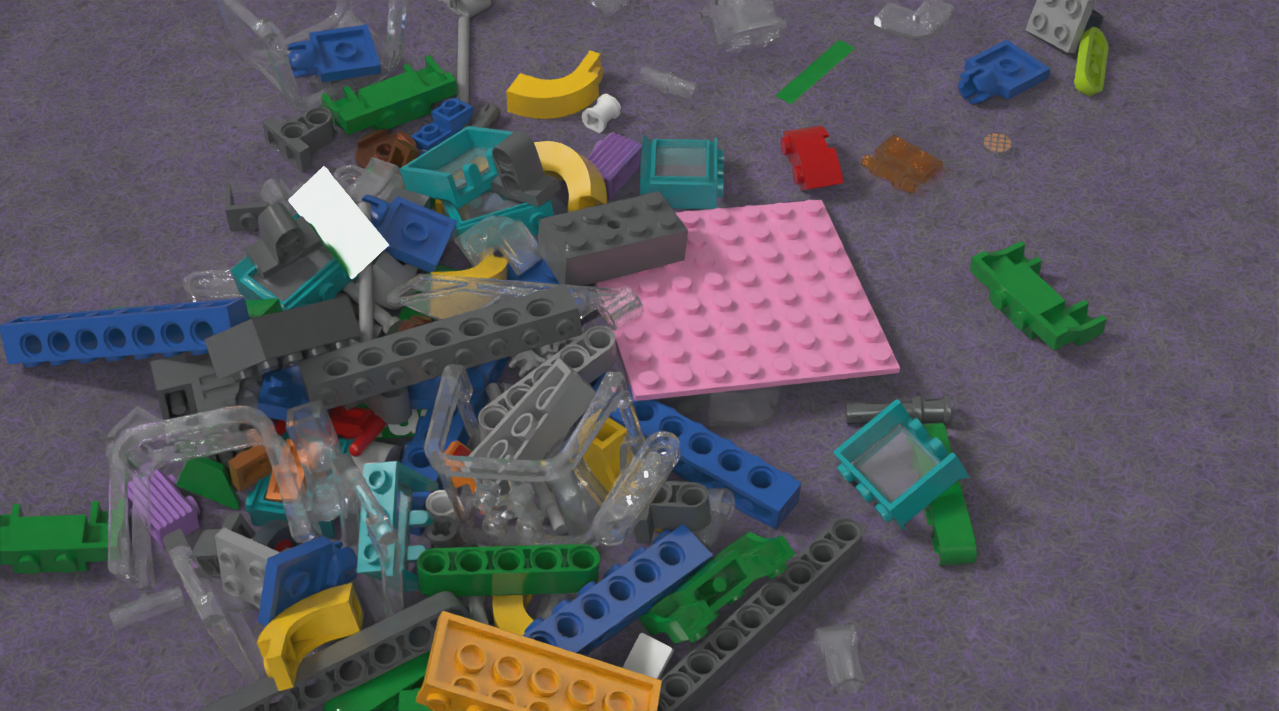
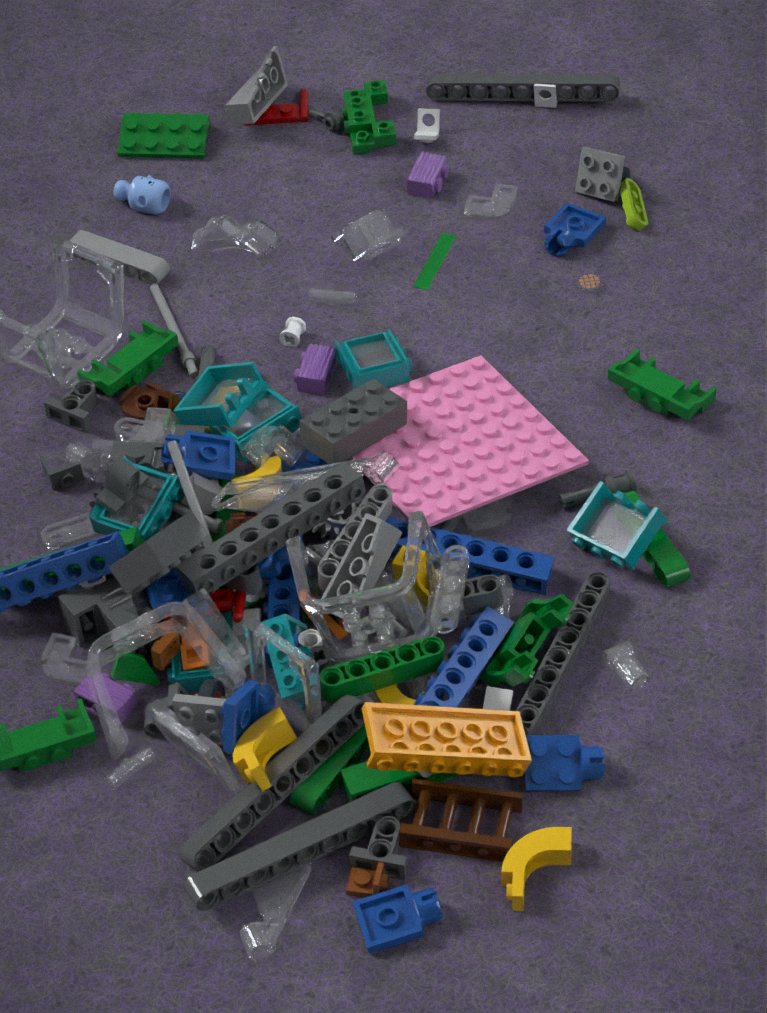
camera: 15 degrees left, 0 degrees up
(335, 54) = (80, 336): blue plate -> none
(338, 222) = (157, 460): sticker -> none
(447, 119) = (181, 369): blue slope -> none
(521, 171) = (269, 389): dark grey tile -> none
(556, 97) = (252, 329): yellow arch -> none
(582, 177) = (290, 376): yellow arch -> none
(811, 158) = (462, 326): red brick -> none
(907, 159) = (528, 309): clear orange plate -> none

